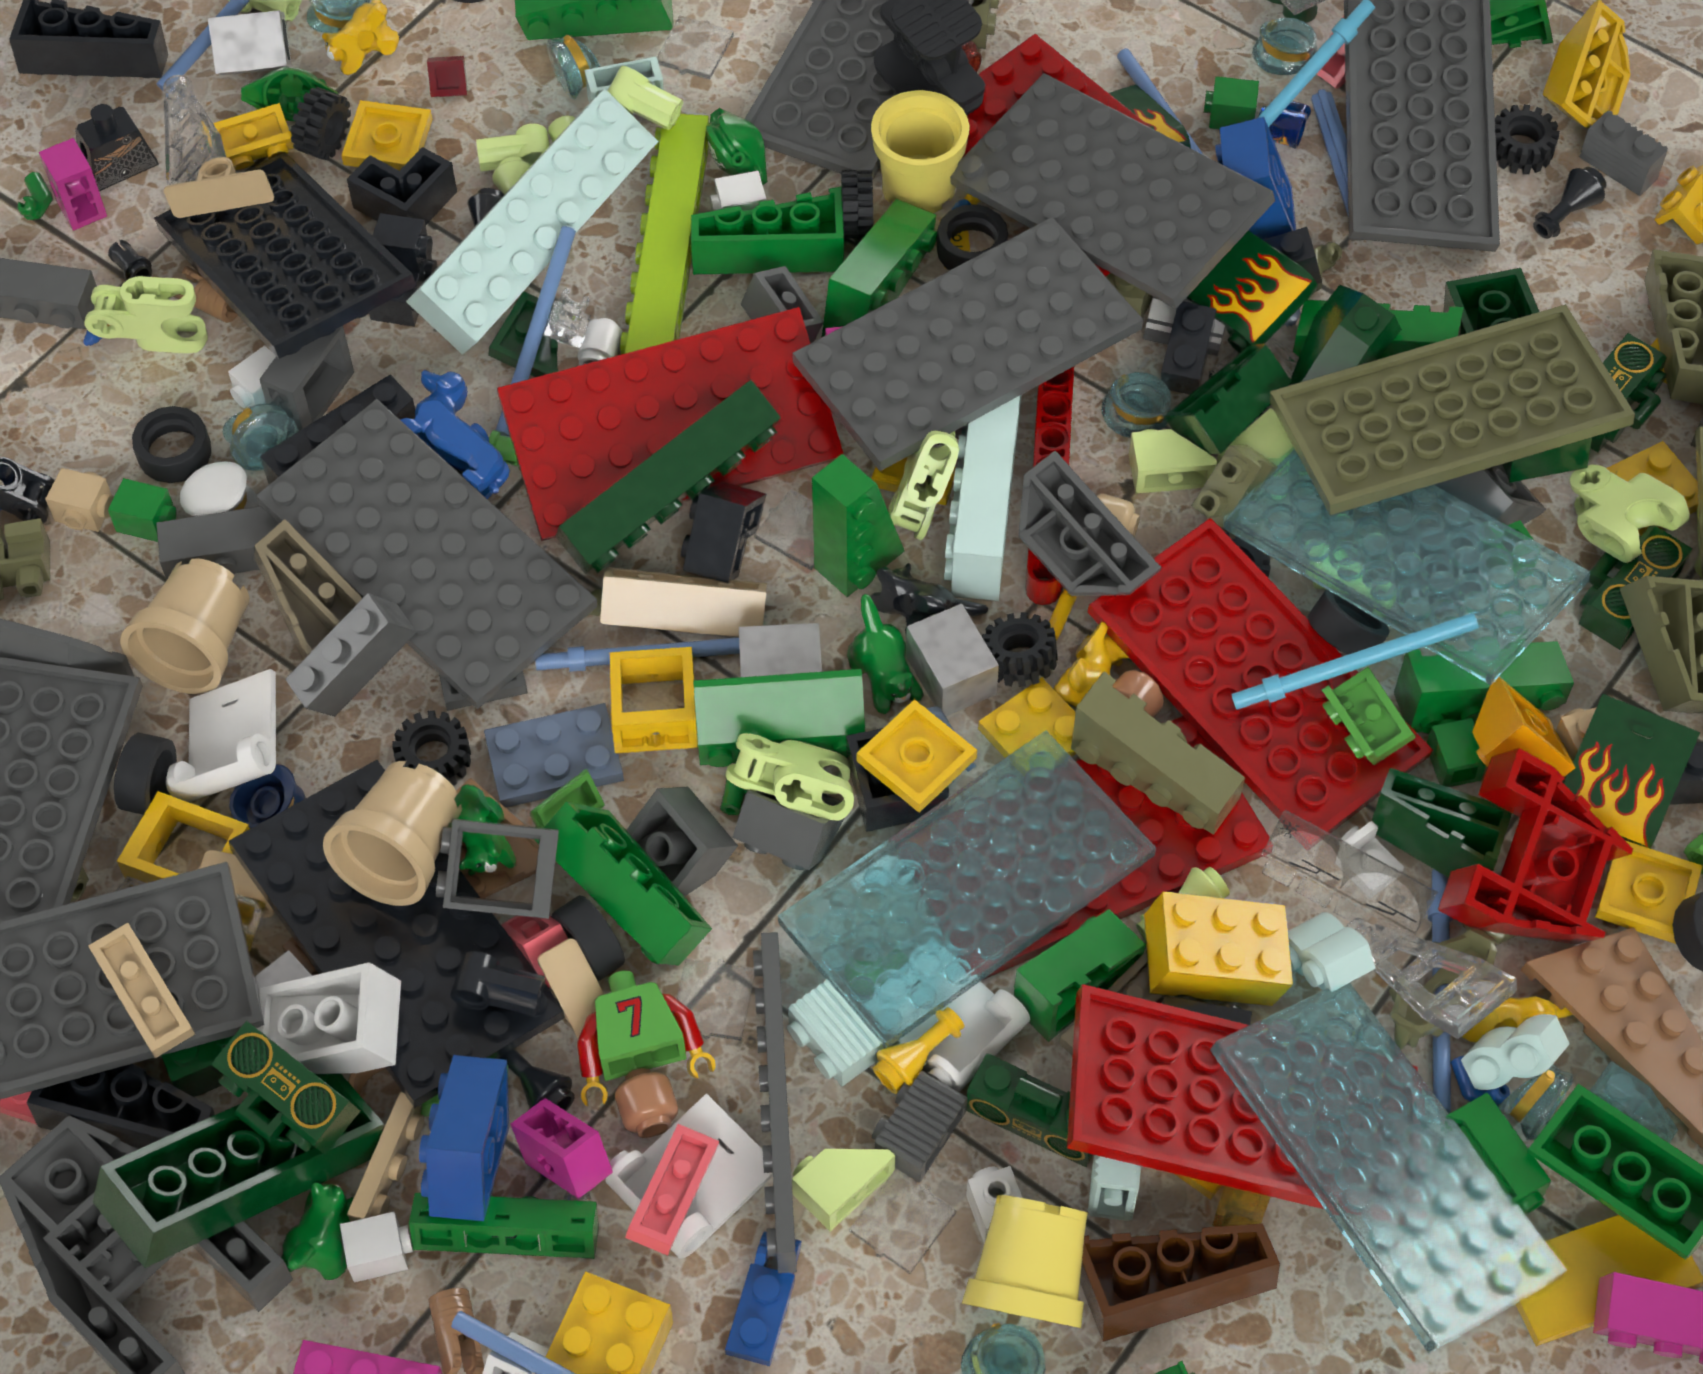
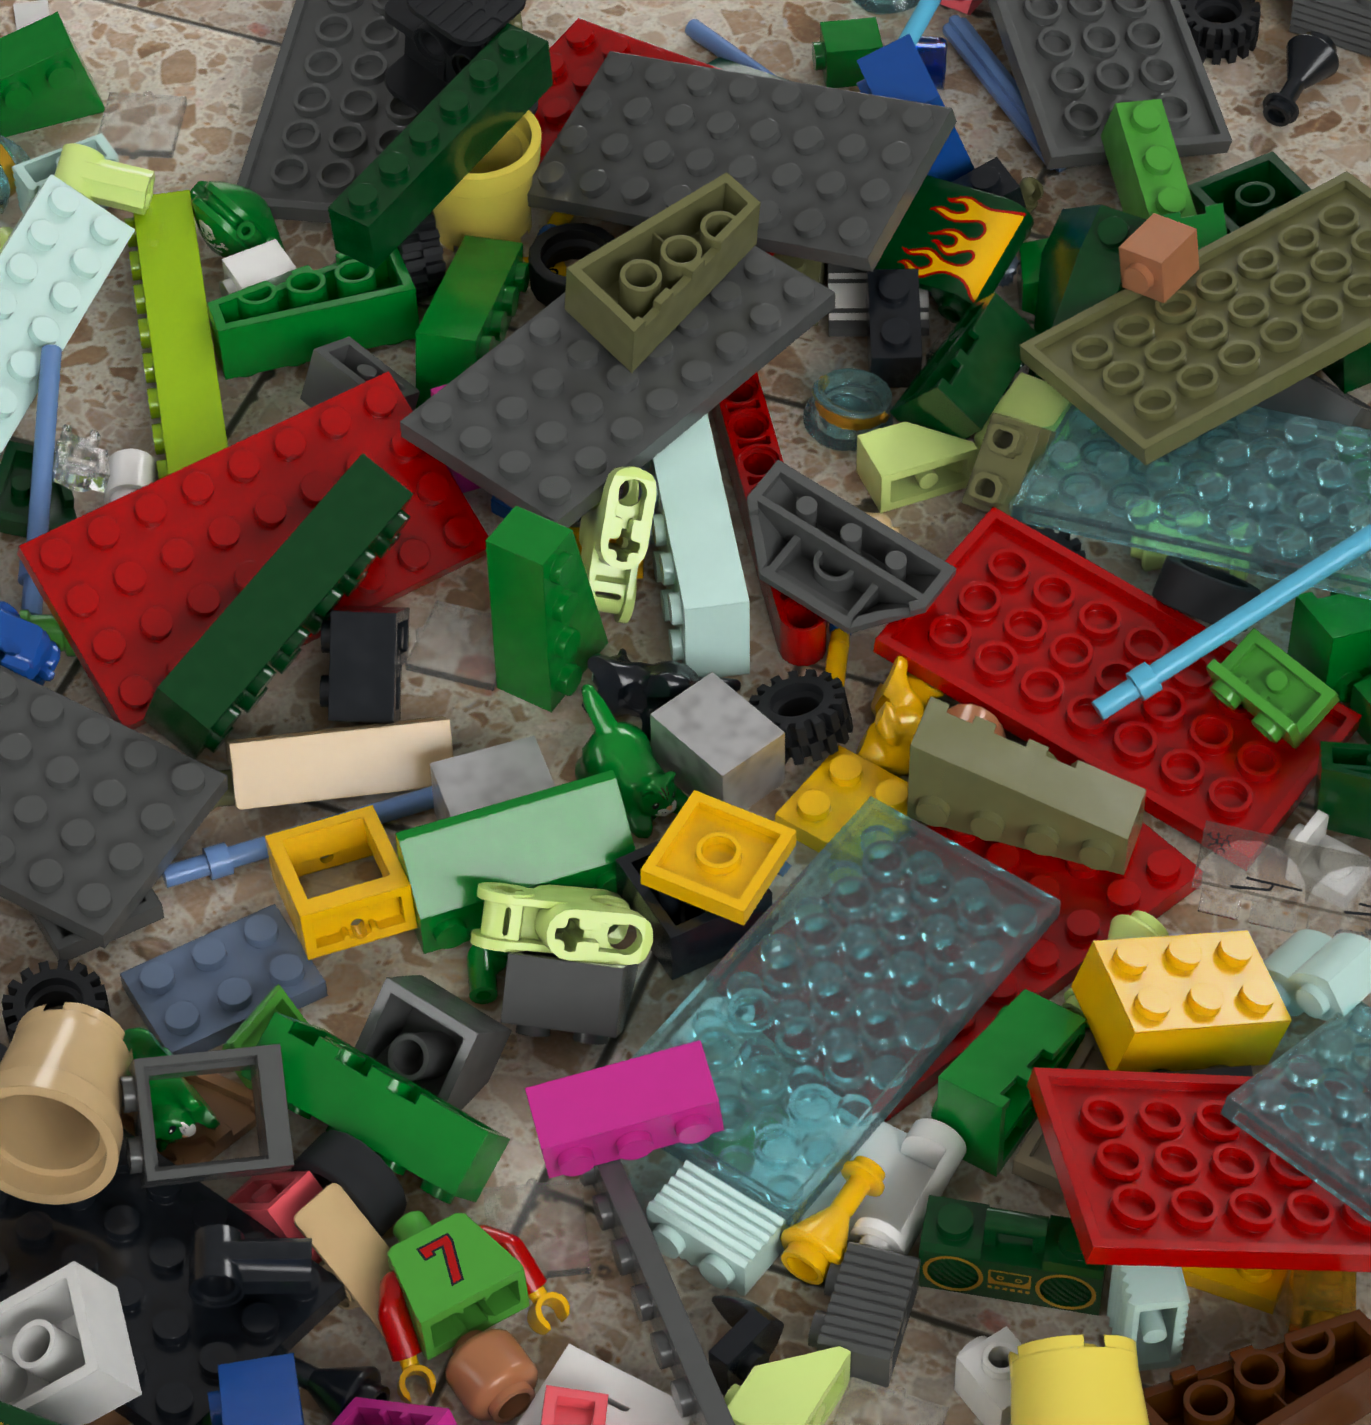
camera: 15 degrees left, 10 degrees down
(789, 935) = (625, 1109): none -> dark pink brick
(829, 1127) = (746, 1344): none -> black plate
(887, 133) = (440, 146): none -> dark green brick
(1014, 277) = (661, 269): none -> olive wedge
(1394, 347) = (1159, 258): none -> nougat brick
(1421, 258) = (1145, 160): none -> bright green brick

